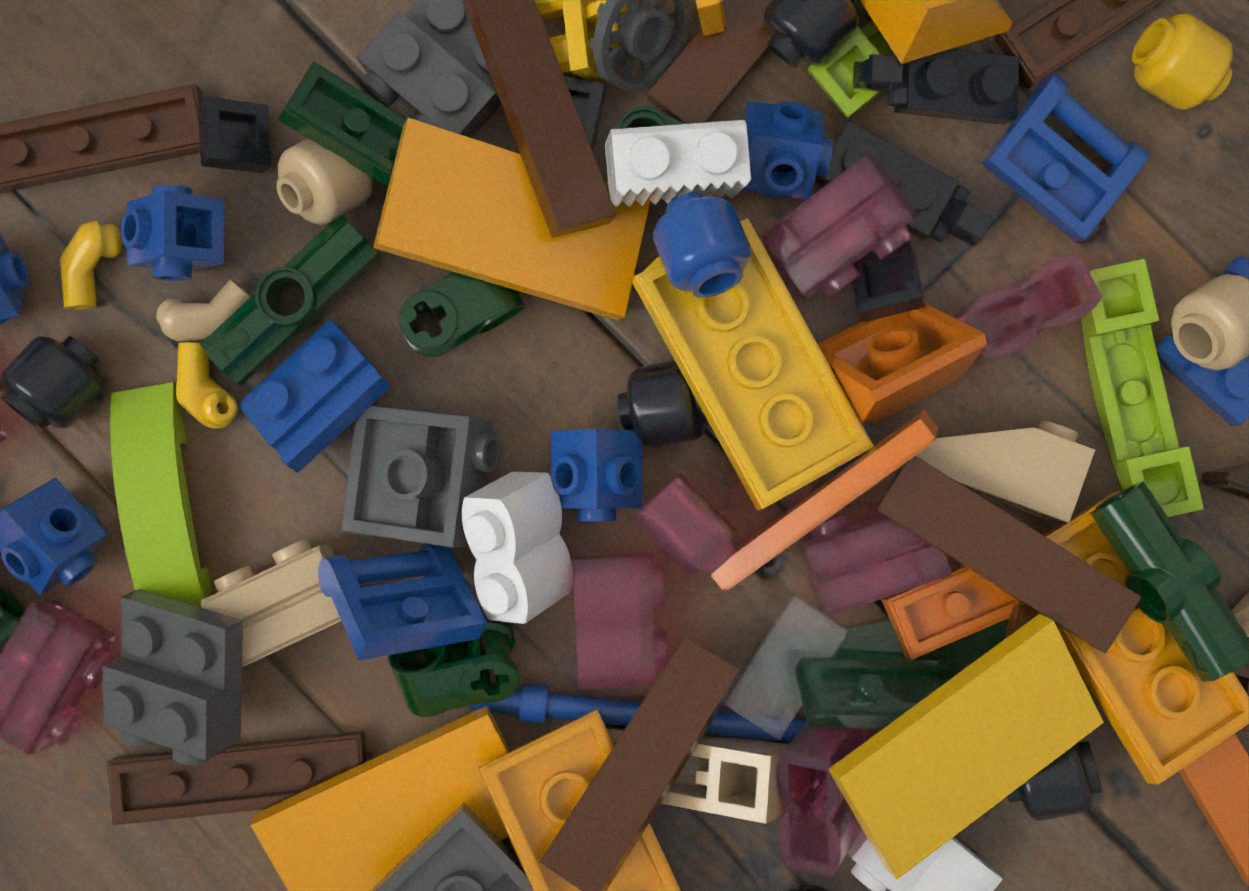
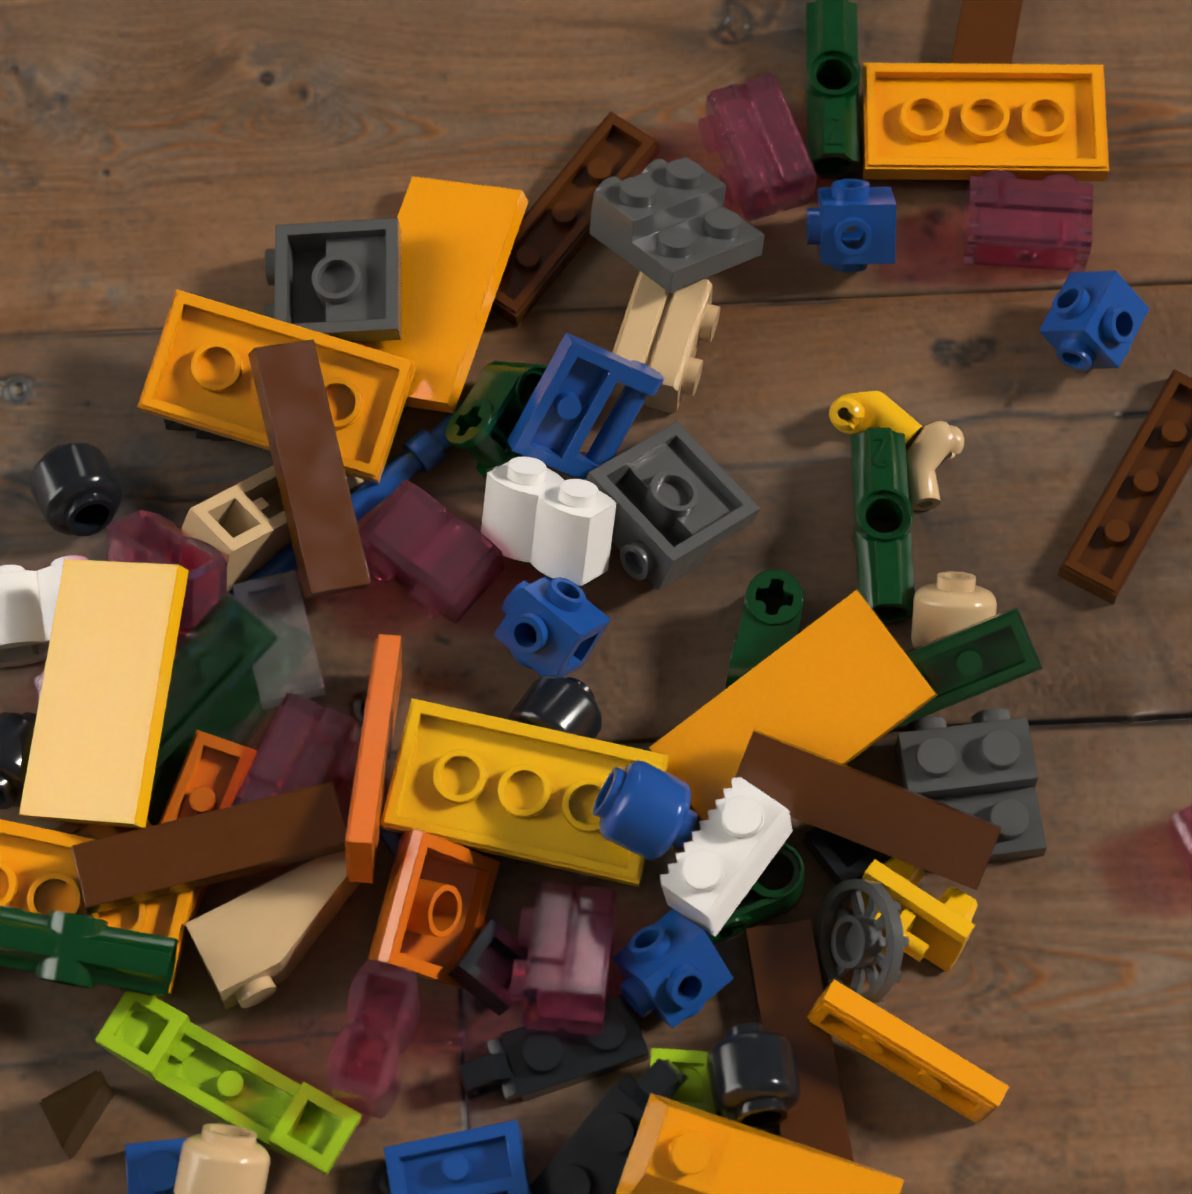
camera: 135 degrees right, 20 degrees down
(52, 382) = (969, 317): black head -> none
(79, 260) = (1049, 411): yellow arm -> none
(154, 494) = (823, 319): lime slope -> none
(174, 232) = (1005, 482): blue brick -> none
(234, 135) = (1047, 588): black plate -> none
(313, 395) = (795, 484): blue plate -> none
(688, 526) = (449, 647): clear pink brick -> none

